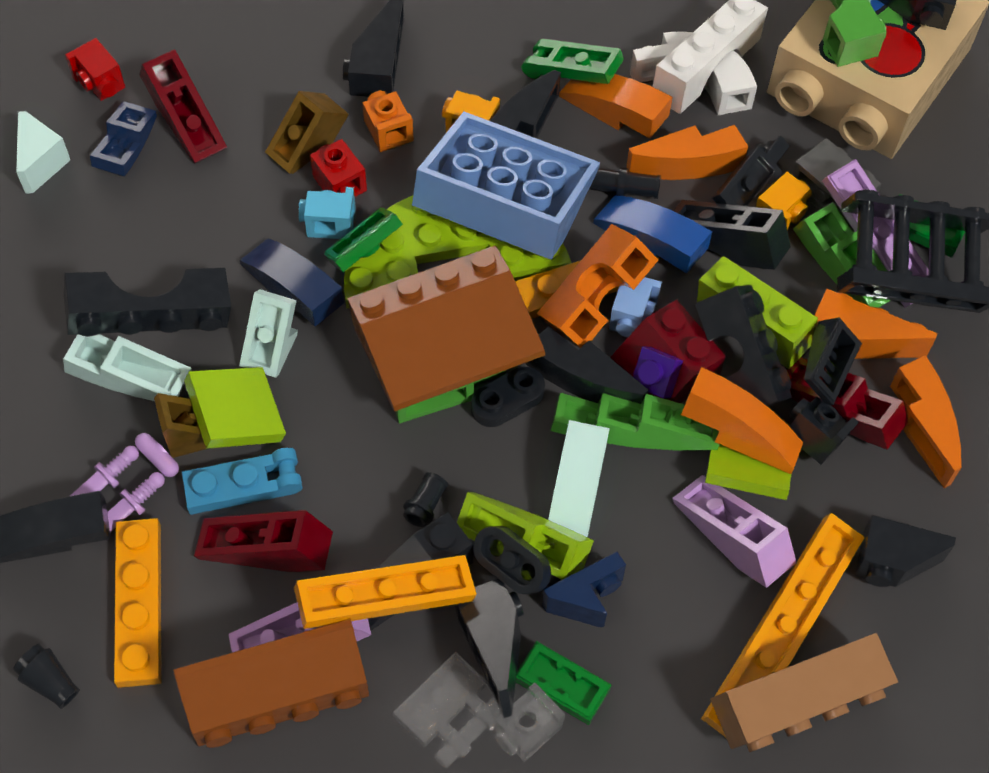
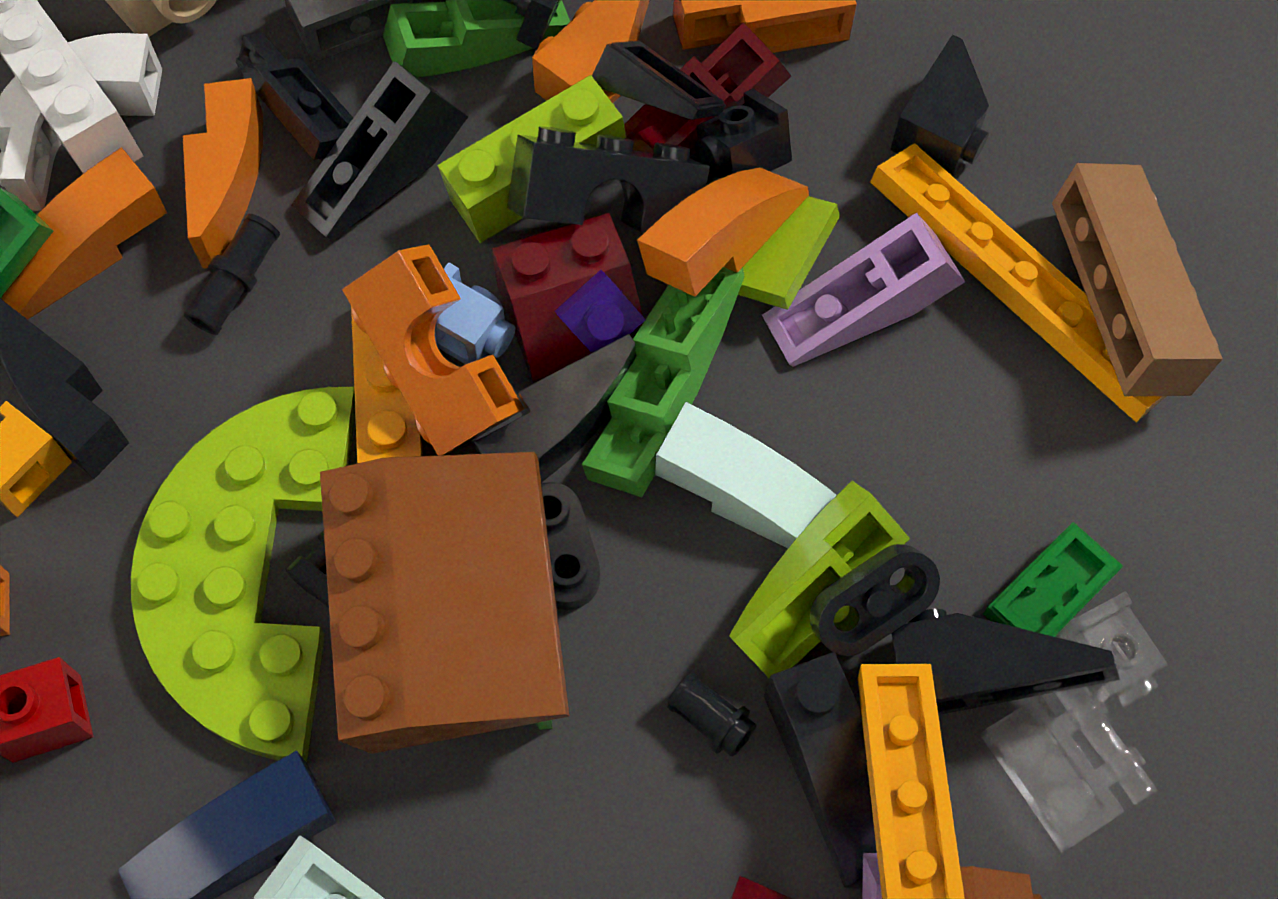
camera: 75 degrees left, 5 degrees up
(328, 213) = (115, 747): medium azure brick -> none
(363, 239) = (202, 695): green plate -> none
(504, 184) = (188, 434): medium blue slope -> none
(576, 594) = (907, 496): dark blue slope -> none
(659, 229) = (337, 251): blue slope -> none
(787, 195) = (352, 66): light orange brick -> none

